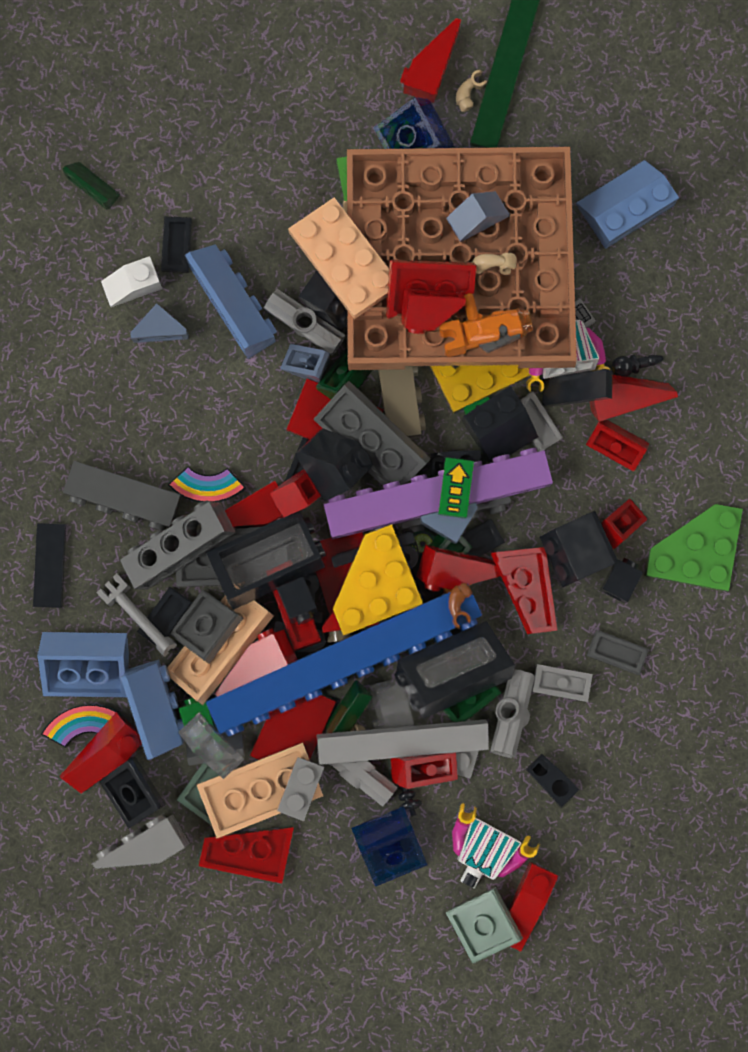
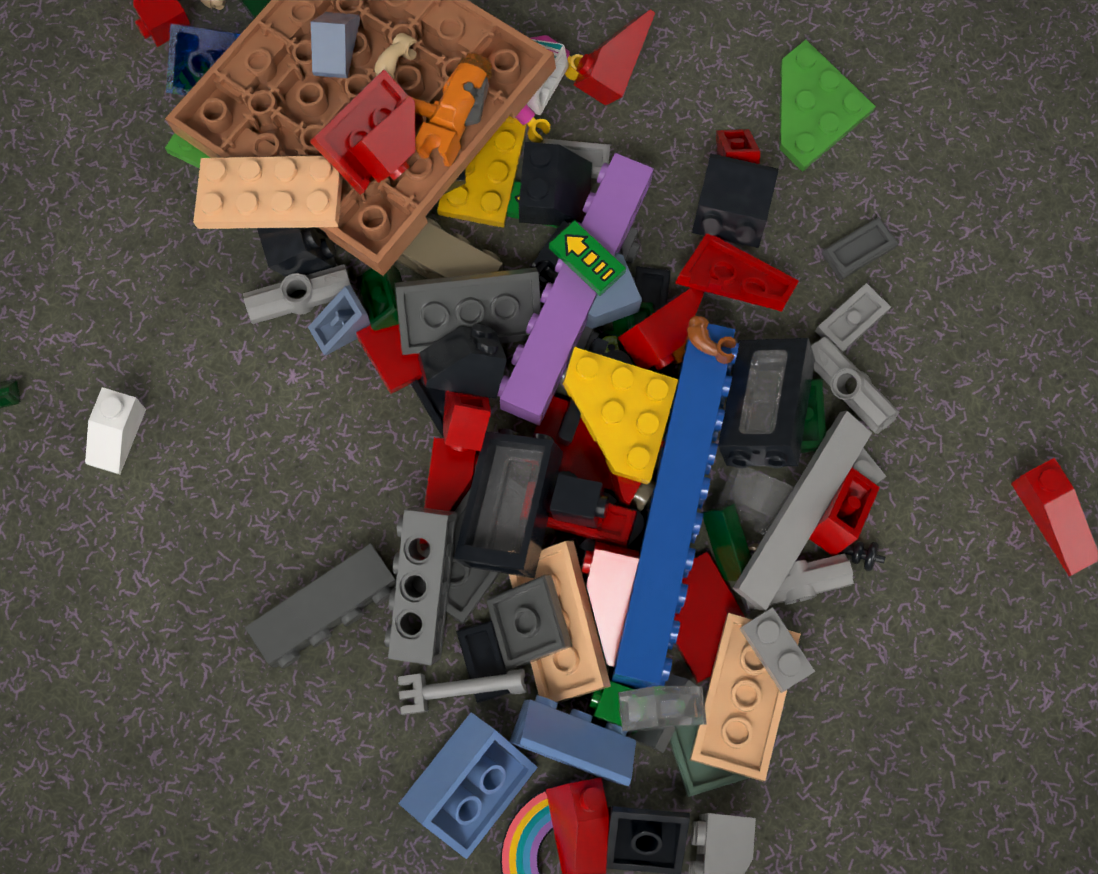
camera: 50 degrees left, 10 degrees down
(49, 565) = (333, 743): black tile -> none
(158, 326) = (181, 437): sand blue slope -> none
(176, 244) = (114, 360): black tile -> none
(204, 487) = (380, 520): tile -> none
(231, 300) = (214, 346): medium blue slope -> none
(249, 854) = (804, 761): red wing -> none
(389, 846) = (899, 607): clear blue slope -> none
(484, 925) = (1051, 573): sand green tile -> none
(486, 849) = (973, 510): torso -> none
(552, 780) = (947, 397): black leg -> none
(577, 388) = (576, 87): black tile -> none
(617, 444) = (655, 103): red slope -> none
(622, 580) = (794, 191): black brick -> none
(625, 366) = (590, 33): black bar -> none

